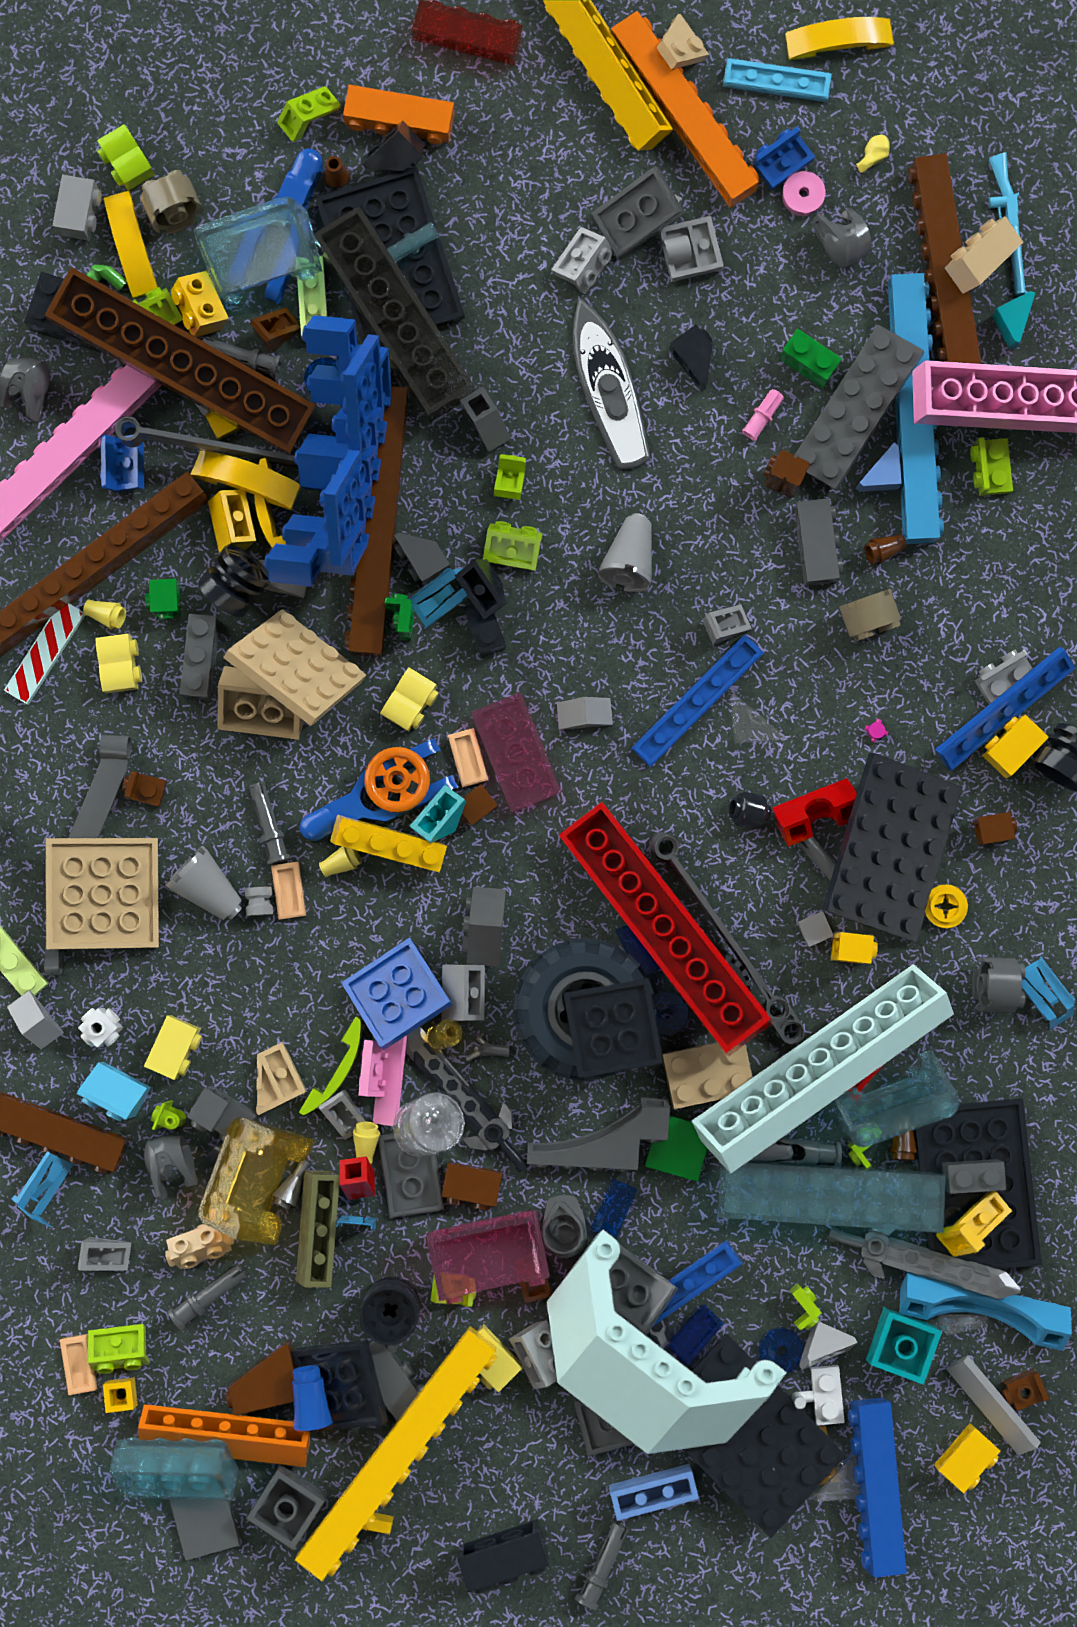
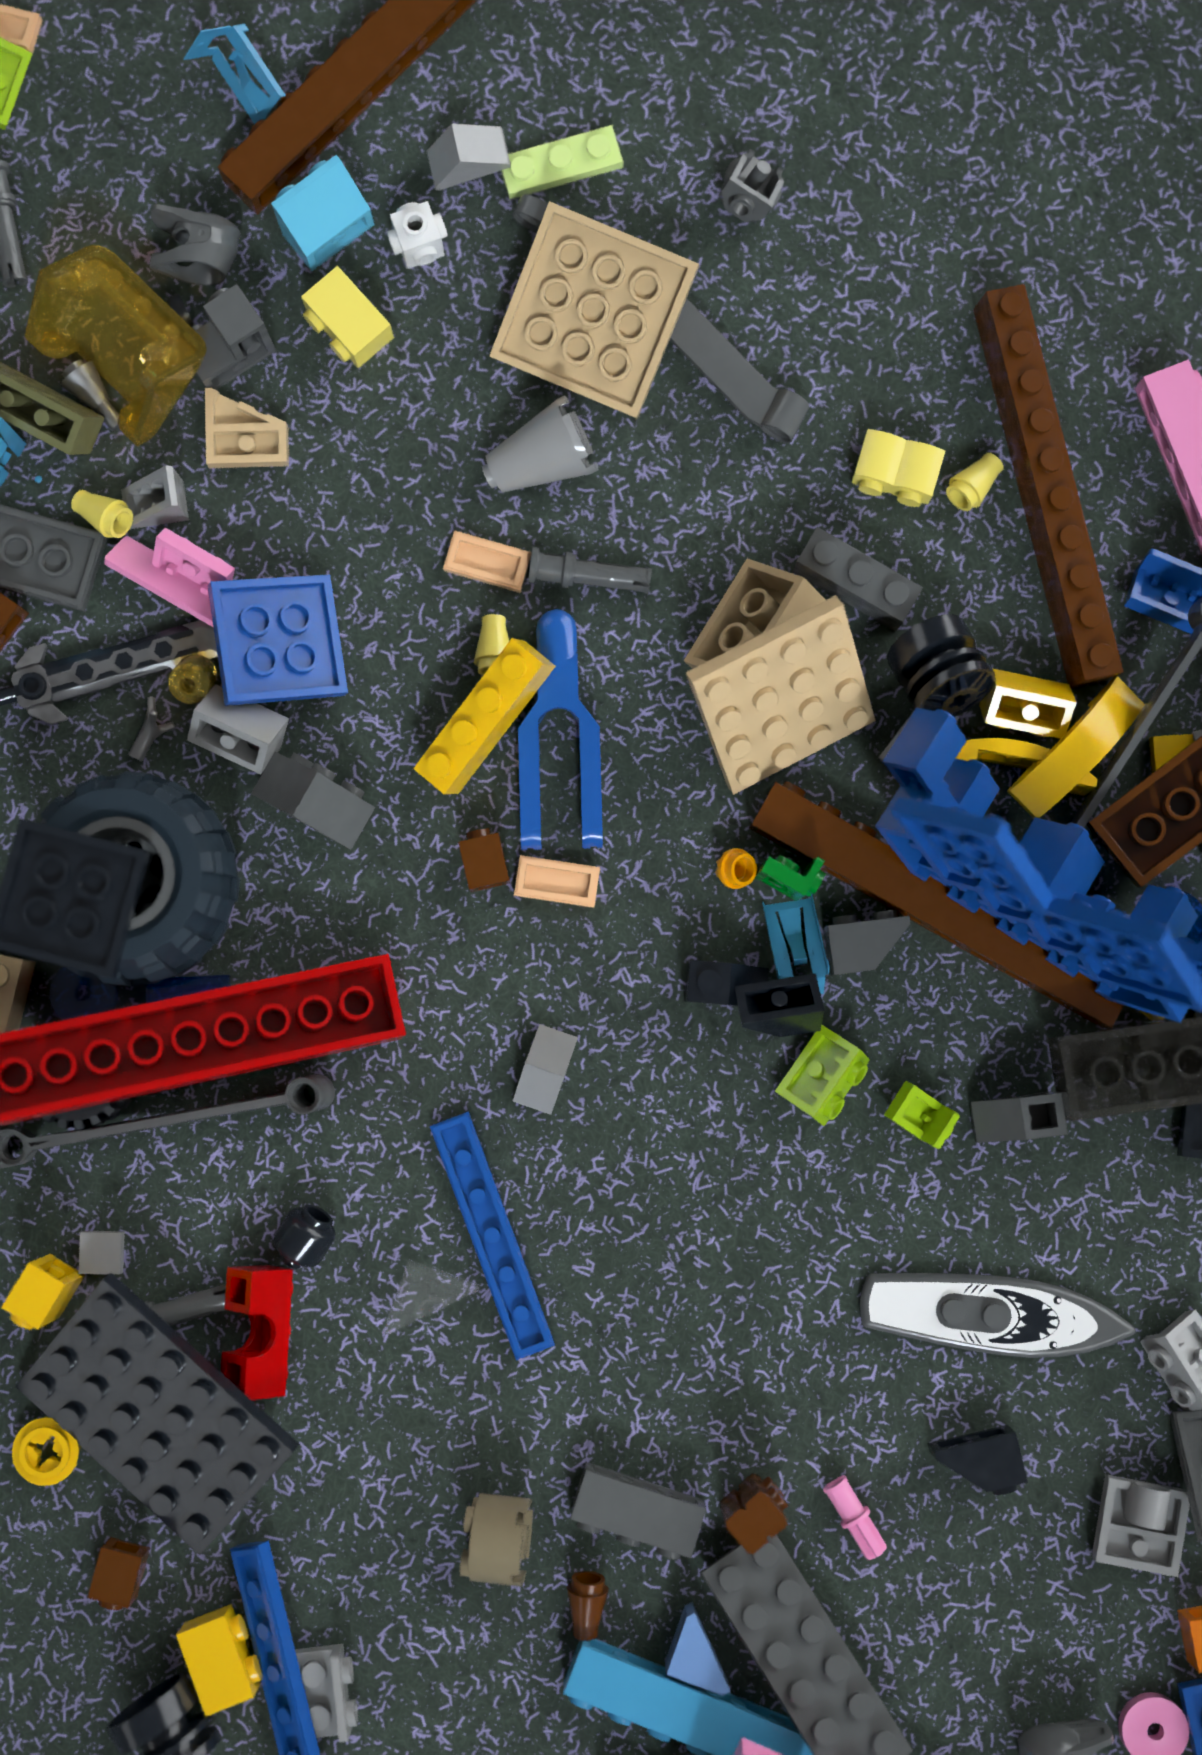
camera: 110 degrees right, 0 degrees up
(44, 653) = (955, 379): tile -> none
(103, 1255) = (119, 112): light grey slope -> none
(144, 788) = (712, 430): reddish brown bracket -> none
(164, 598) = (959, 567): green brick -> none
(167, 1116) = (255, 268): lime hinge -> none
(196, 1246) = (70, 224): tan brick -> none
(258, 901) = (489, 514): light grey wheel -> none
(353, 1038) = (191, 481): lime slope -> none
(357, 1178) = (58, 478): red brick -> none
(380, 795) = (595, 787): orange plate -> none
(409, 700) = (671, 836): light yellow brick -> none
(411, 652) = (736, 868): none -> light orange plate
(416, 1132) = (97, 589): clear wheel -> none
(440, 815) = (489, 803): teal slope -> none
(516, 752) = (533, 949): clear pink plate -> none
(630, 556) = (736, 1233): light grey cone -> none
(726, 623) = (580, 1326): light grey slope -> none
(810, 358) = (906, 1625): green brick -> none
(876, 730) = (335, 1468): dark pink piece -> none

